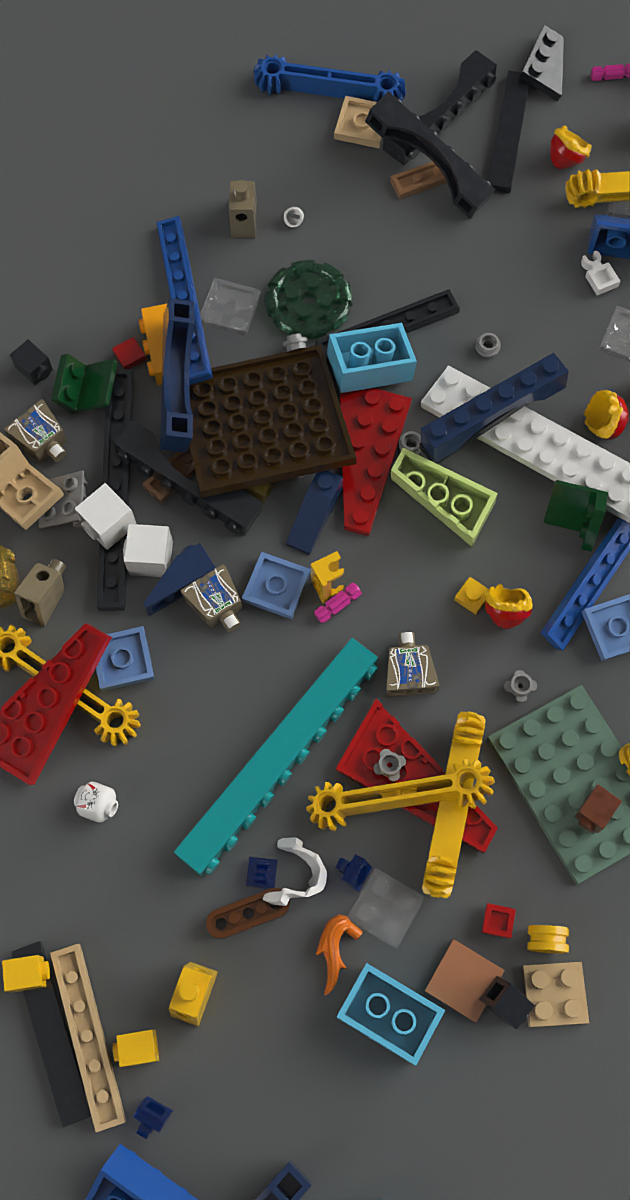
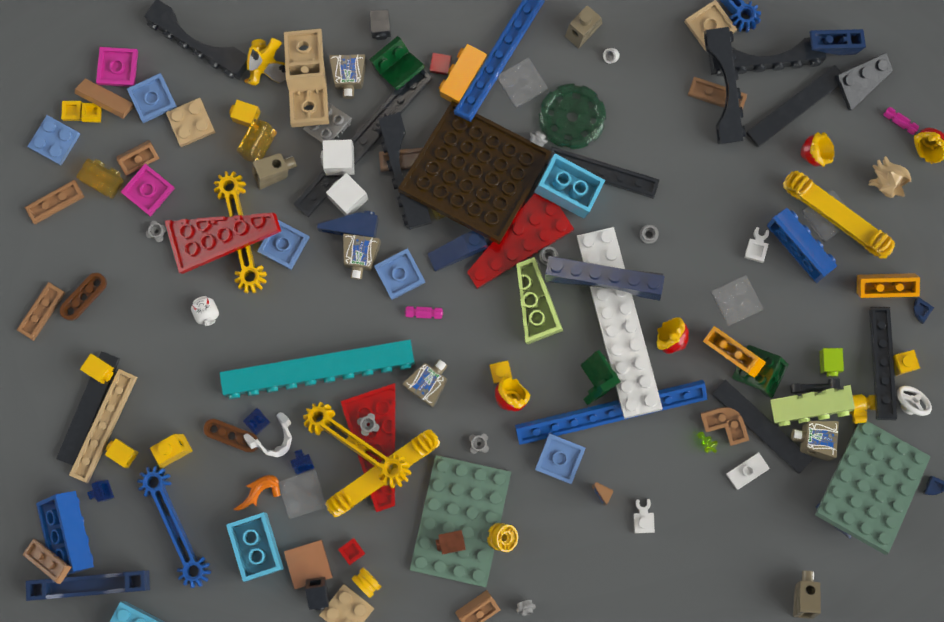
camera: 45 degrees right, 10 degrees up
(175, 397) = (446, 106): dark blue arch -> none
(274, 1078) = (174, 526): none -> blue arm
(325, 571) = (426, 294): yellow hinge -> none
(496, 41) = (838, 41): none -> dark blue slope

